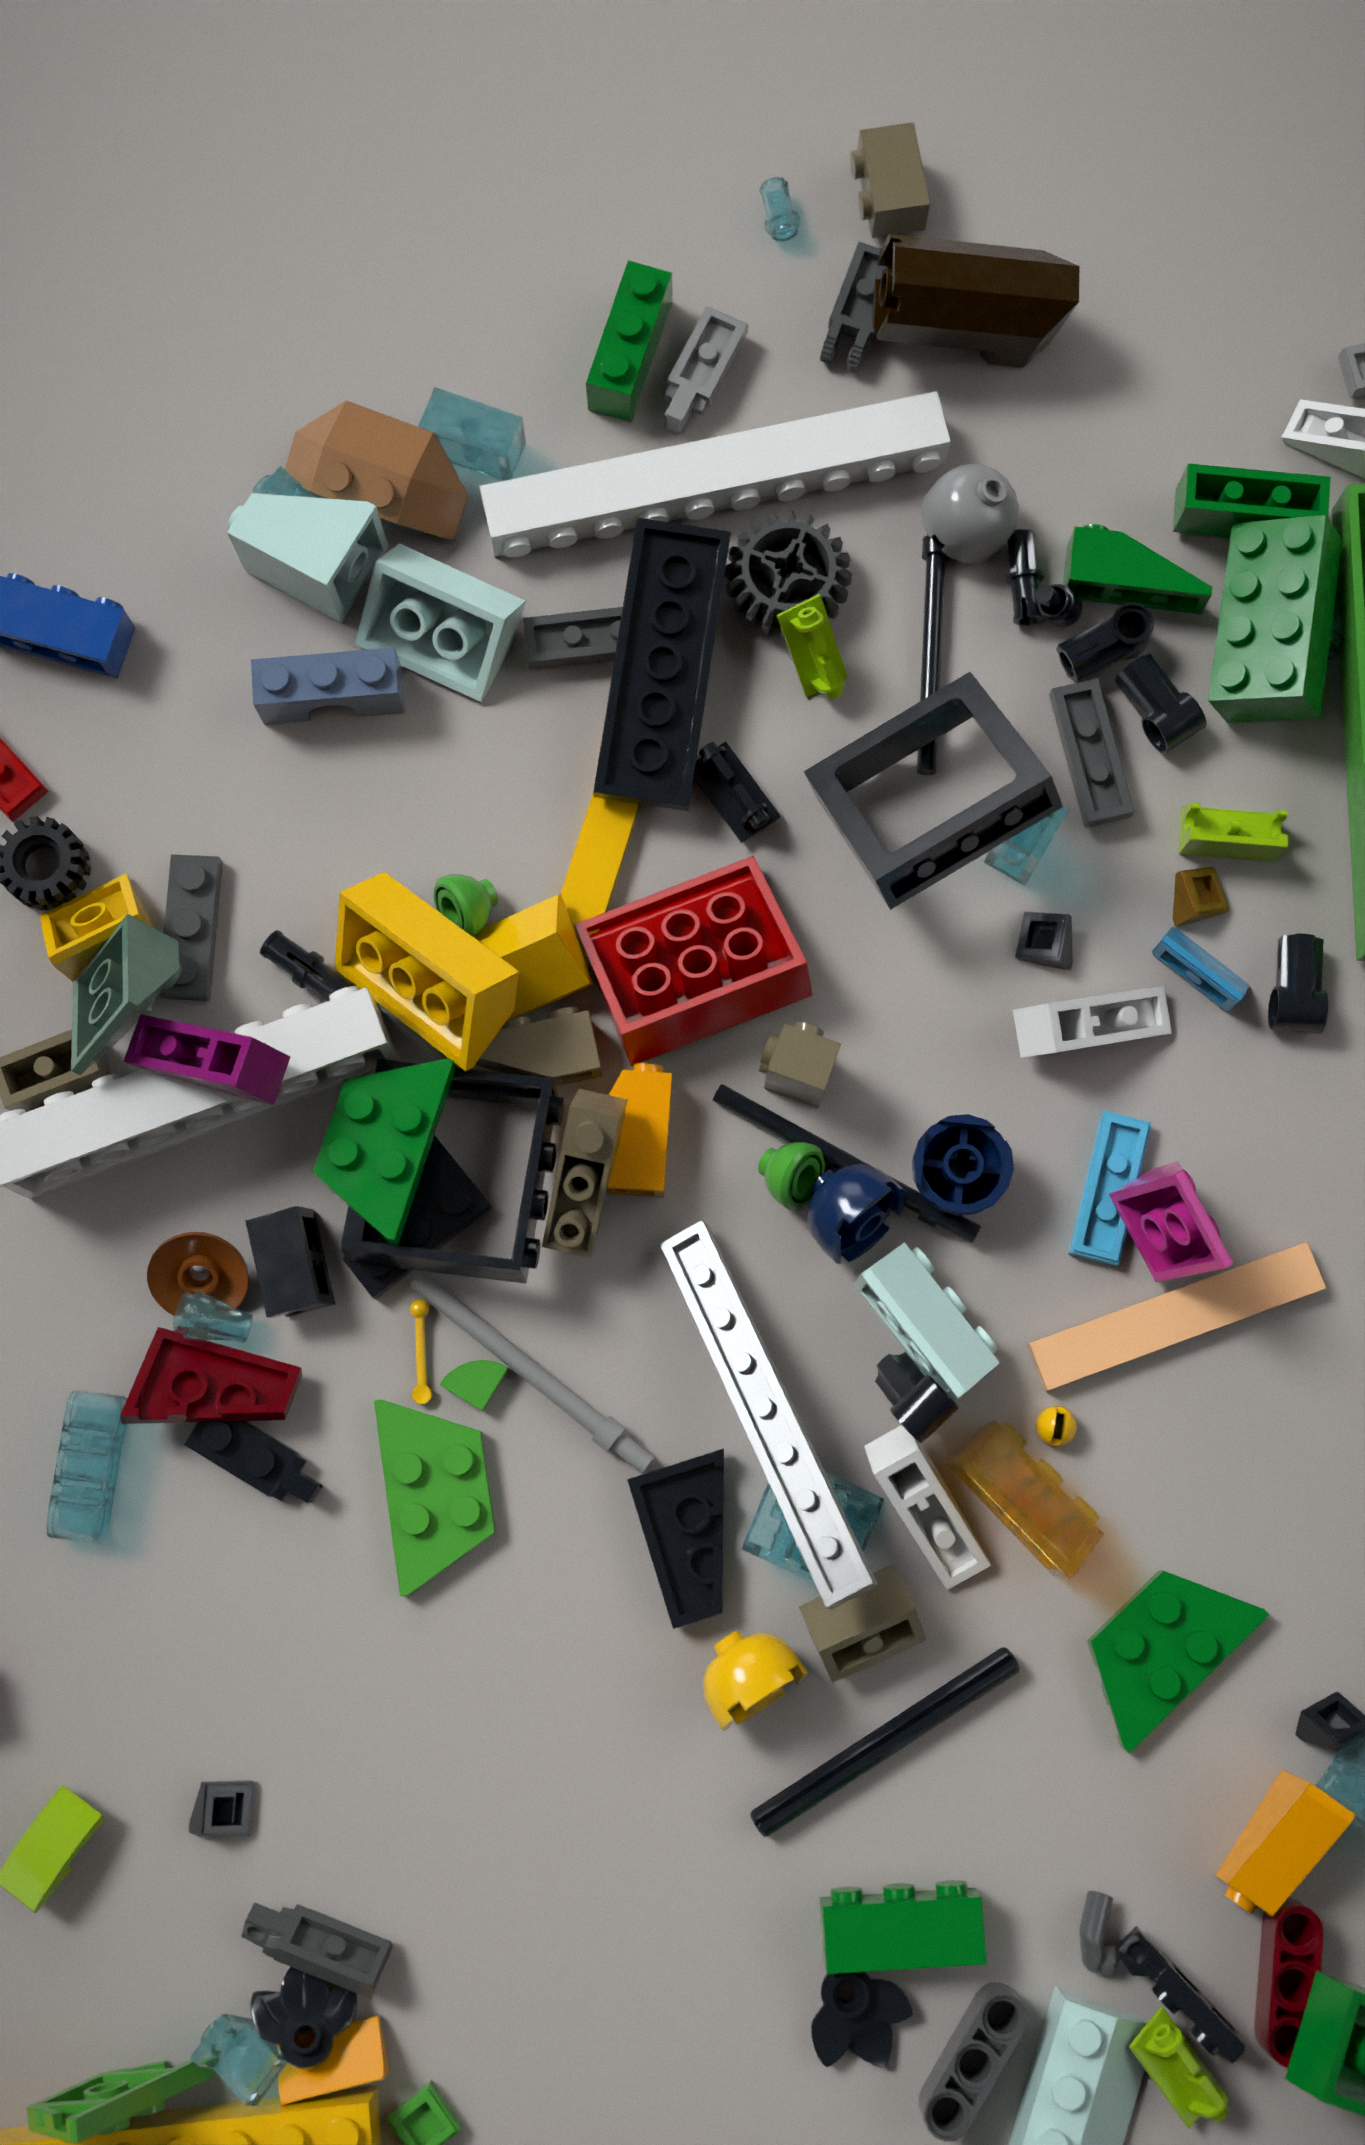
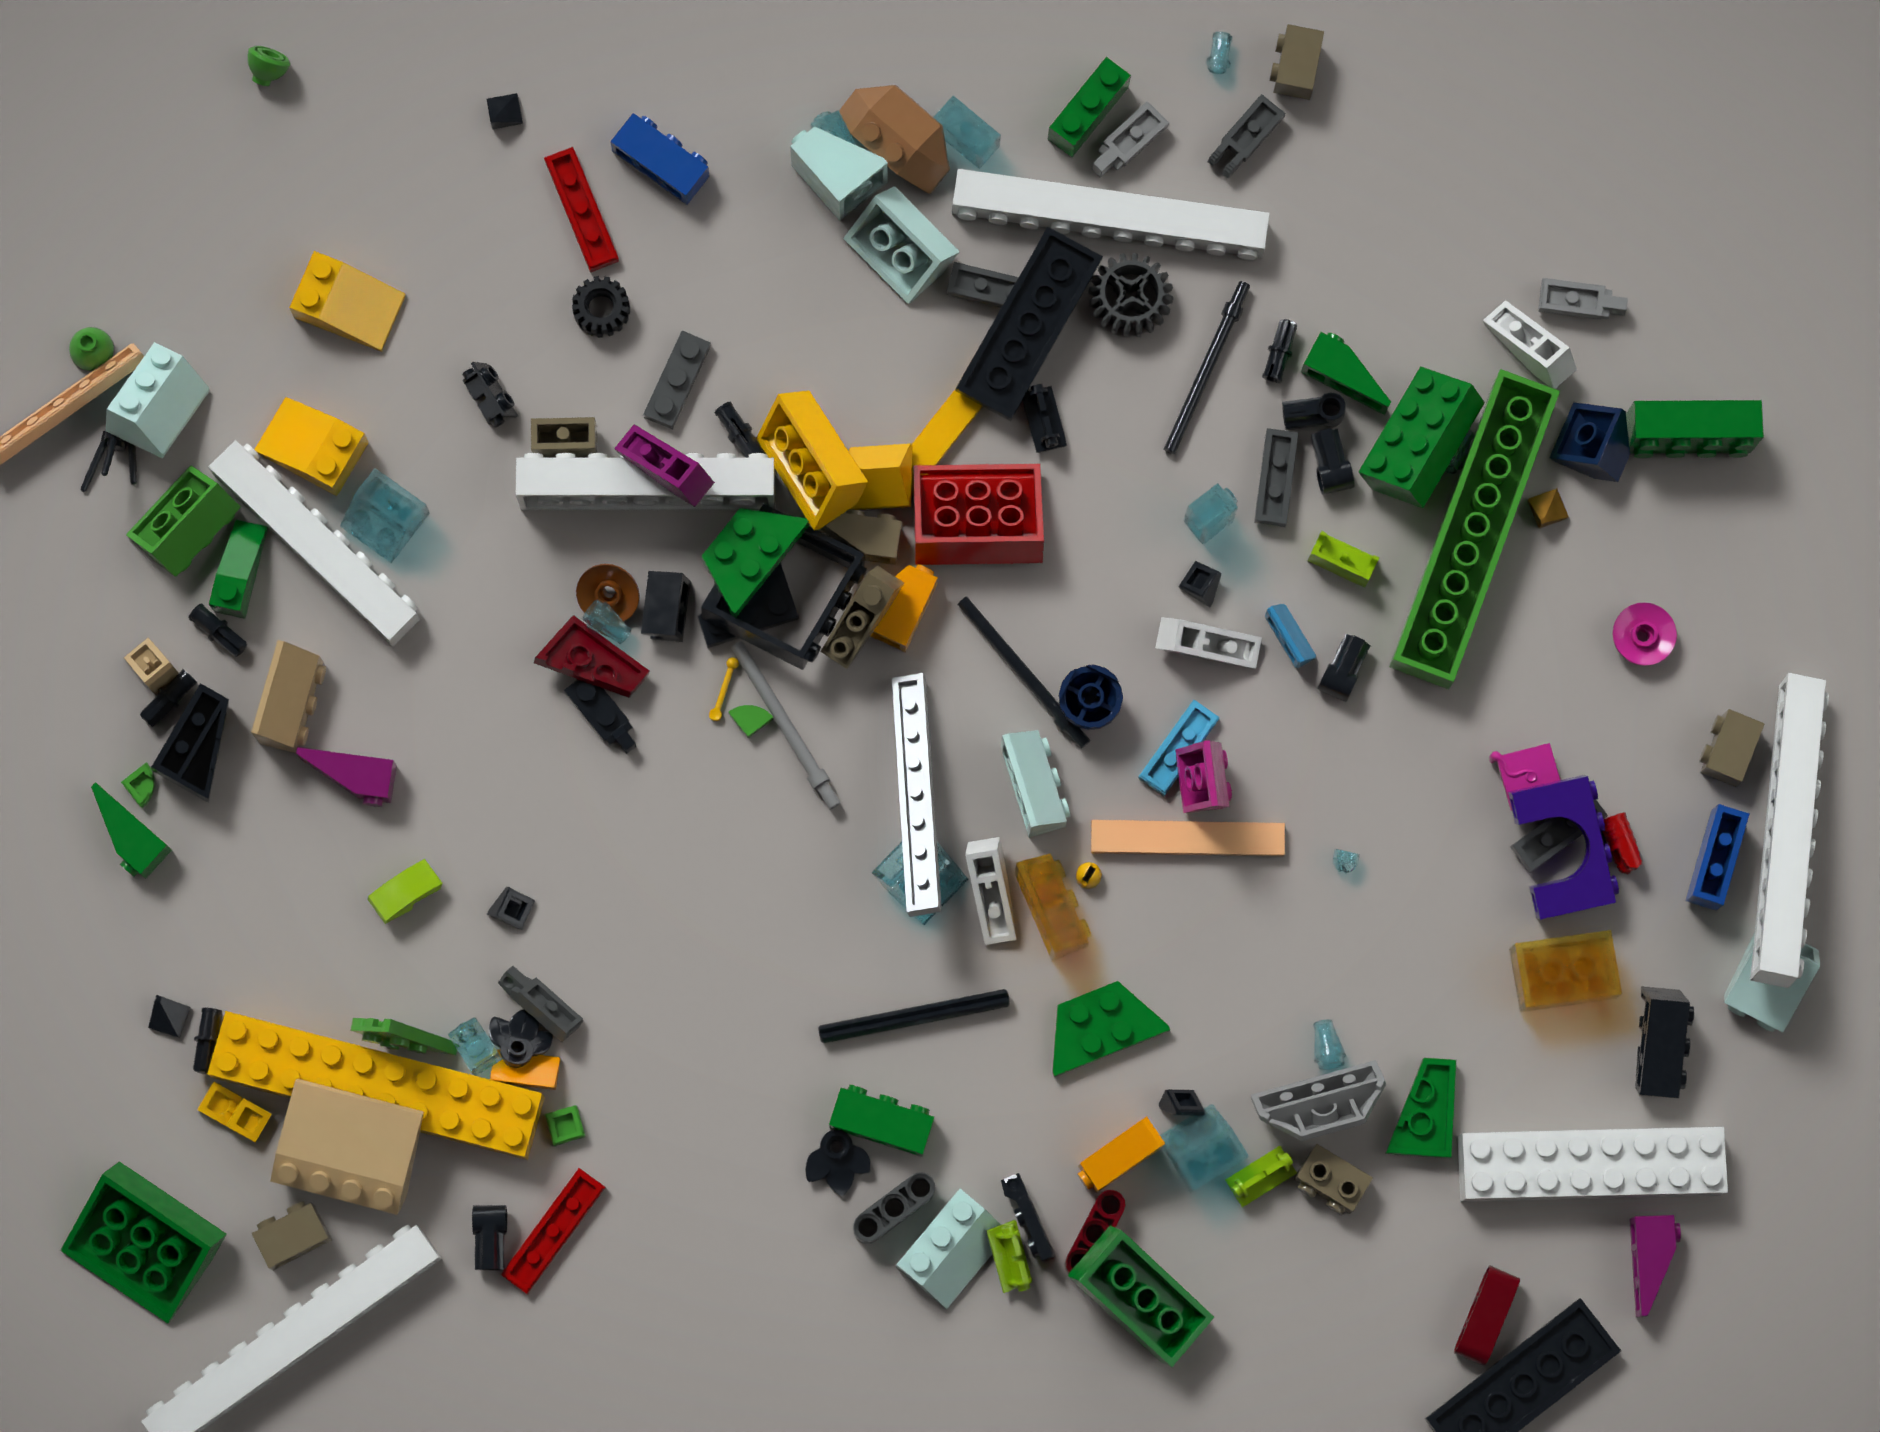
camera: 15 degrees right, 0 degrees up
(86, 922) = (620, 358): yellow slope -> none
(86, 1467) = (502, 681): clear light blue beam -> none
(119, 987) = (625, 401): sand green slope -> none
(360, 679) = (835, 263): sand blue arch -> none
(433, 1491) = (701, 772): bright green wing -> none
(465, 901) = (851, 426): bright green brick -> none
(684, 1533) = (841, 852): black wing -> none
(748, 1675) = (848, 946): yellow cylinder -> none
(792, 1172) = (988, 666): bright green brick -> none
(799, 1062) = (1017, 600): dark tan brick -> none
(813, 648) = (1127, 348): lime hinge -> none
(851, 1210) = (1015, 701): dark blue cylinder -> none
(864, 1628) = (926, 941): dark tan brick -> none
(916, 1397) = (1008, 821): black piece -> none
(959, 839) = (1170, 498): black piece -> none
(971, 512) = (1260, 298): light grey cylinder -> none
(973, 297) = (1314, 161): dark brown brick -> none
(1059, 604) = (1293, 376): black cylinder -> none
(1093, 1932) = (992, 1166): dark grey arm -> none
(1197, 896) = (1306, 590): pearl gold slope -> none
(1218, 496) = (1421, 347): green brick -> none

